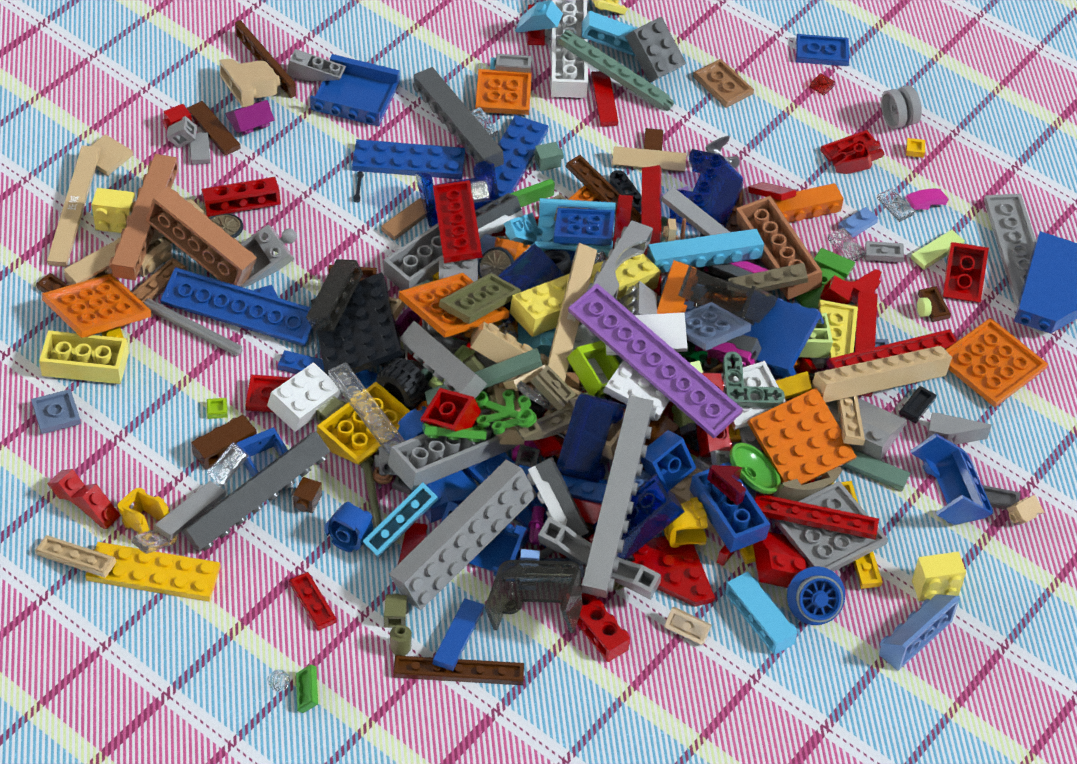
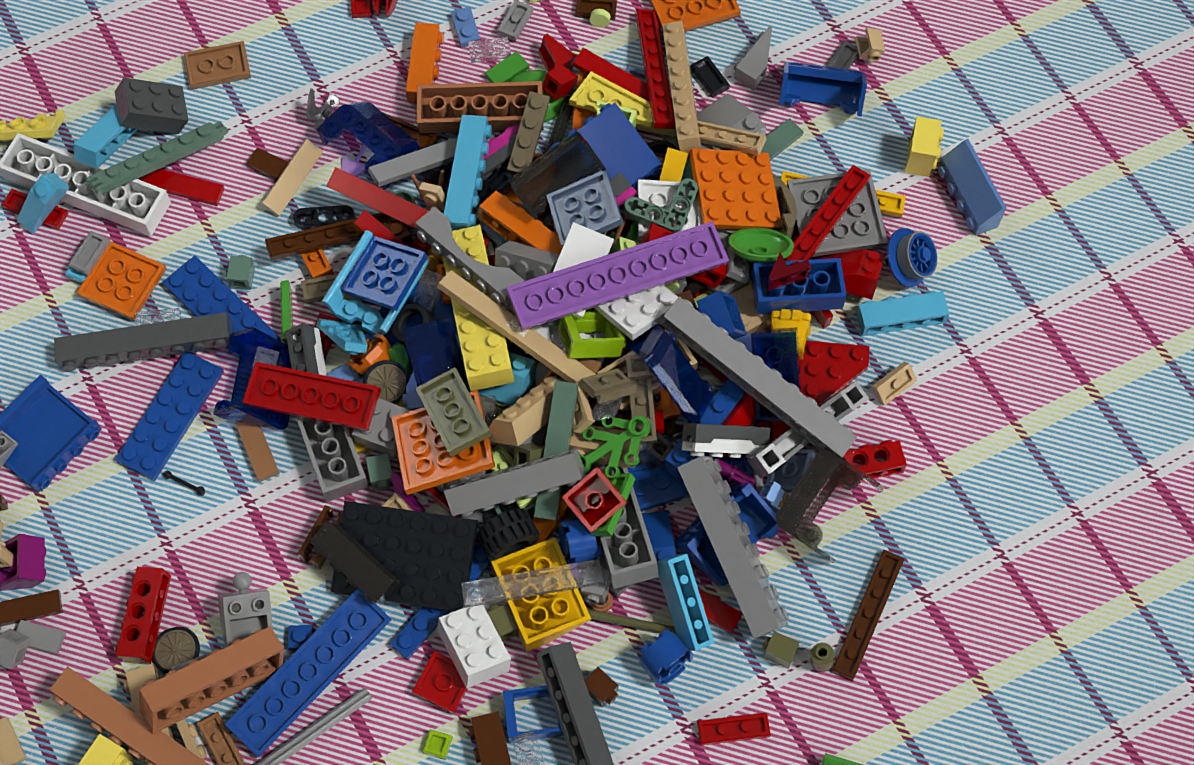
camera: 65 degrees left, 15 degrees up
(458, 634) = (830, 598): blue tile -> none
(775, 191) = (399, 82): red tile -> none

